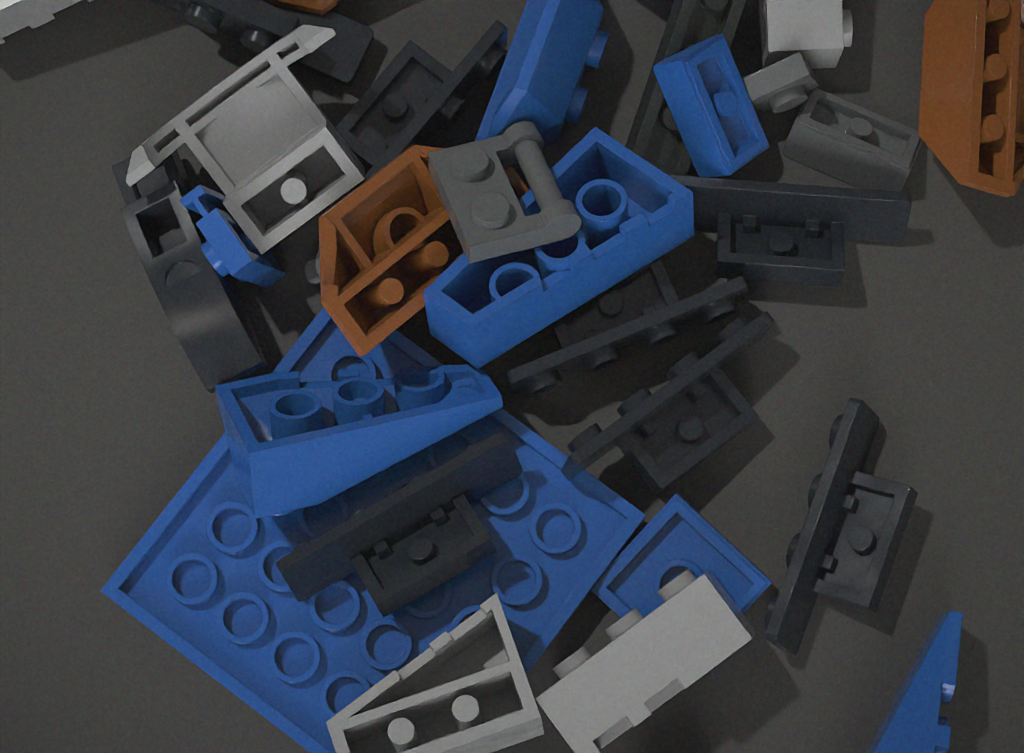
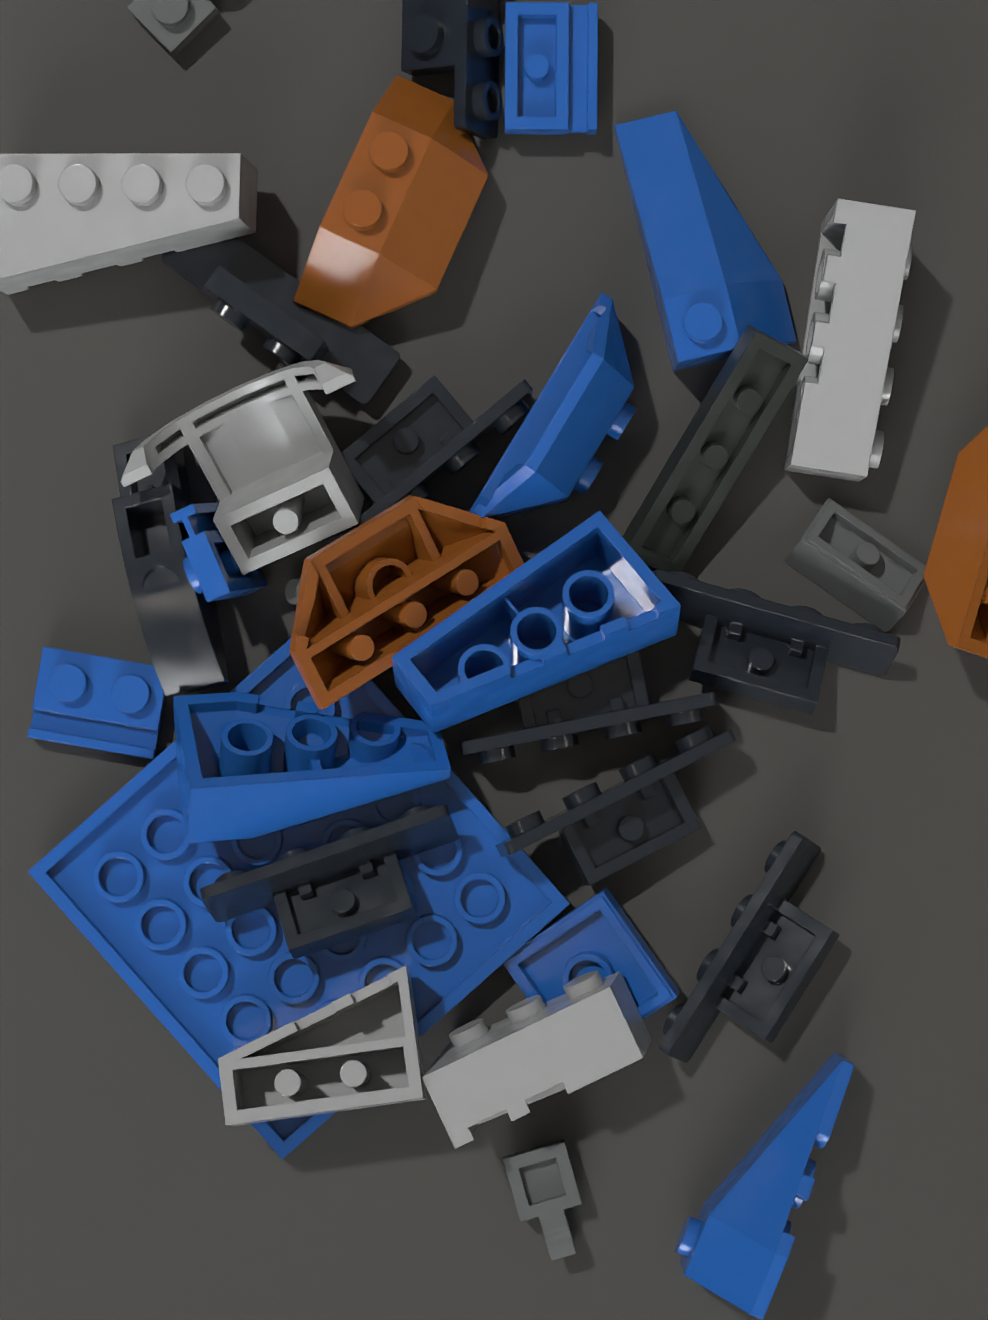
camera: 10 degrees right, 10 degrees up
(141, 416) = (97, 703): none -> blue plate
(484, 203) = (470, 571): dark grey plate -> none
(711, 107) = (721, 511): blue slope -> none
(781, 84) = (794, 499): dark grey plate -> none

